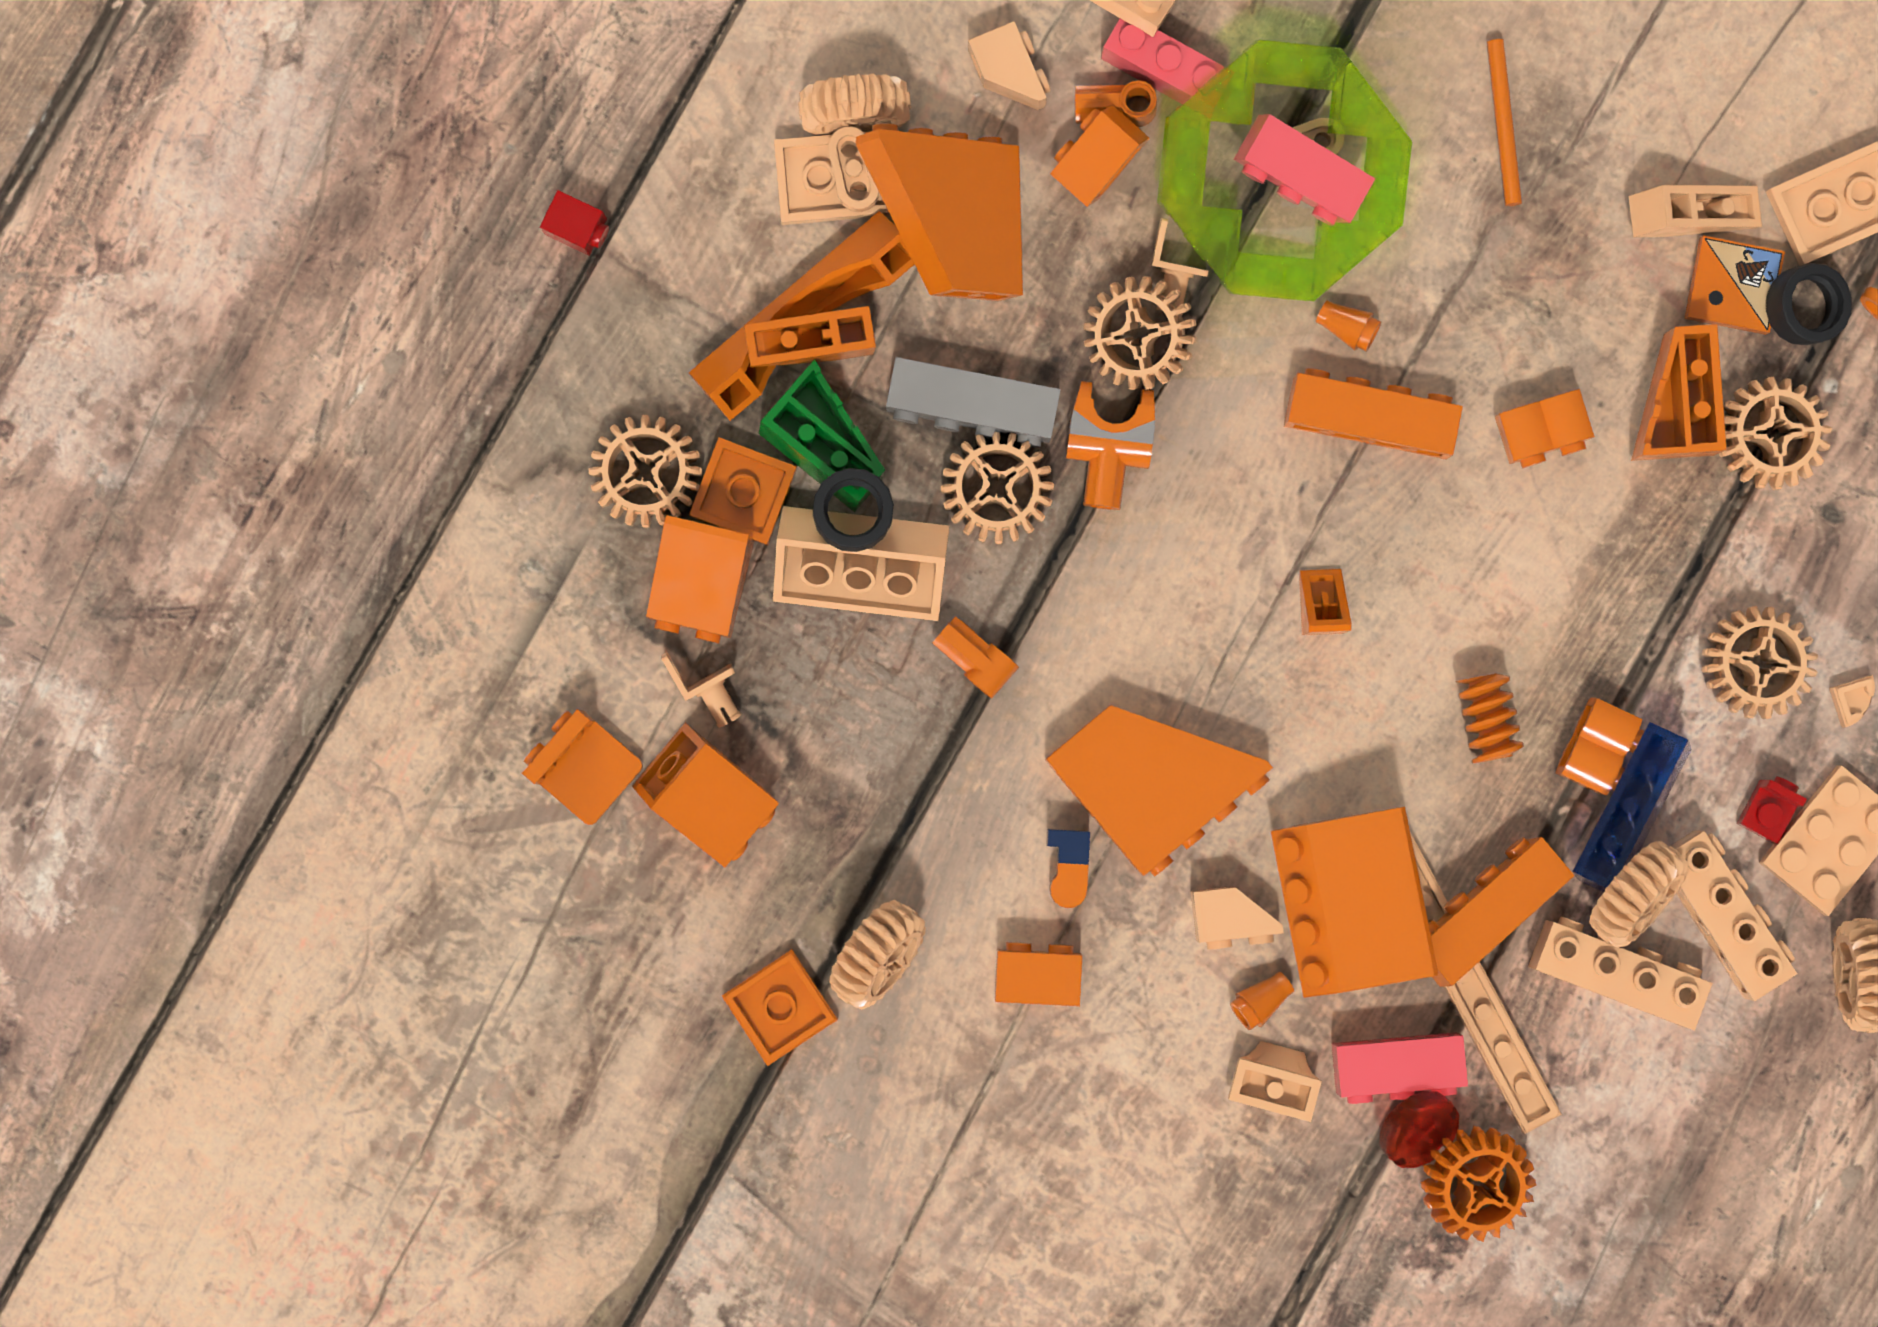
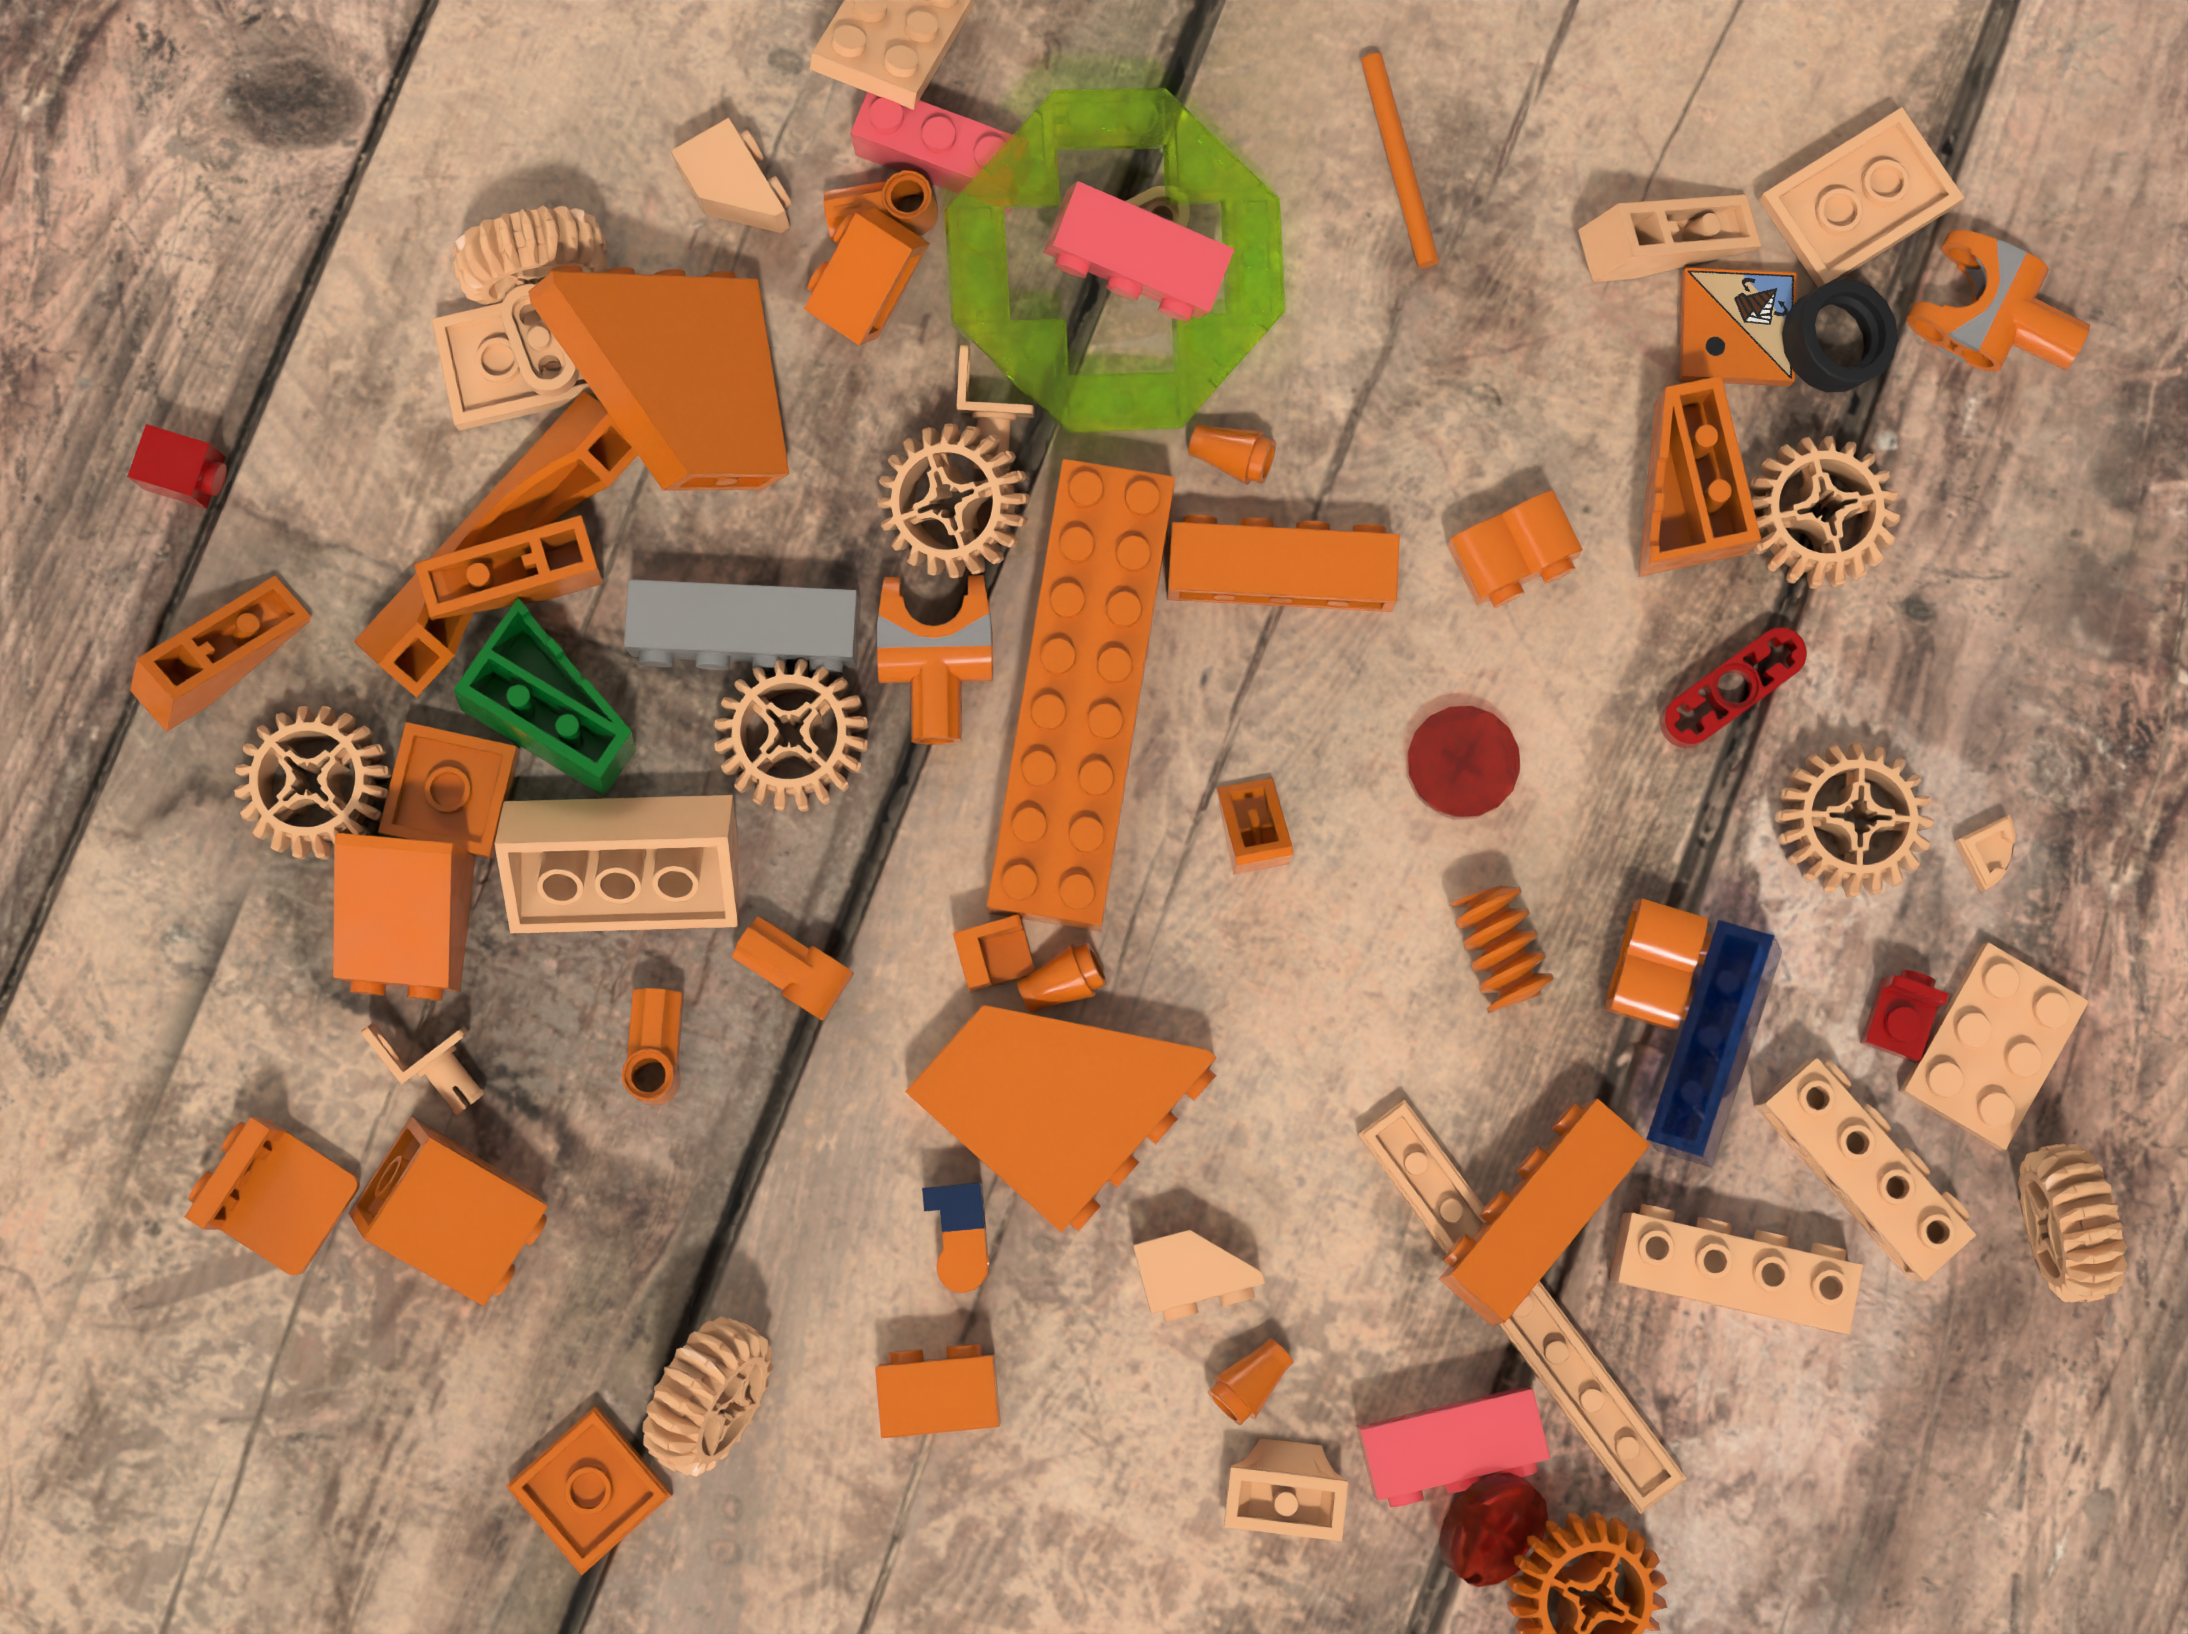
camera: 10 degrees left, 5 degrees down
(586, 365) = (215, 653): none -> orange slope
(842, 479) = (559, 757): black tyre -> none
(869, 693) = (654, 1039): none -> orange piece
(1121, 668) = (994, 953): none -> orange panel
(1170, 693) = (1063, 979): none -> orange cone
(1213, 489) = (1081, 695): none -> orange brick
(1354, 902) = (1354, 1226): orange slope -> none
(1481, 578) = (1463, 762): none -> clear red tile
(1639, 894) = (1741, 1156): light nougat gear -> none
(1708, 529) = (1756, 651): none -> red beam

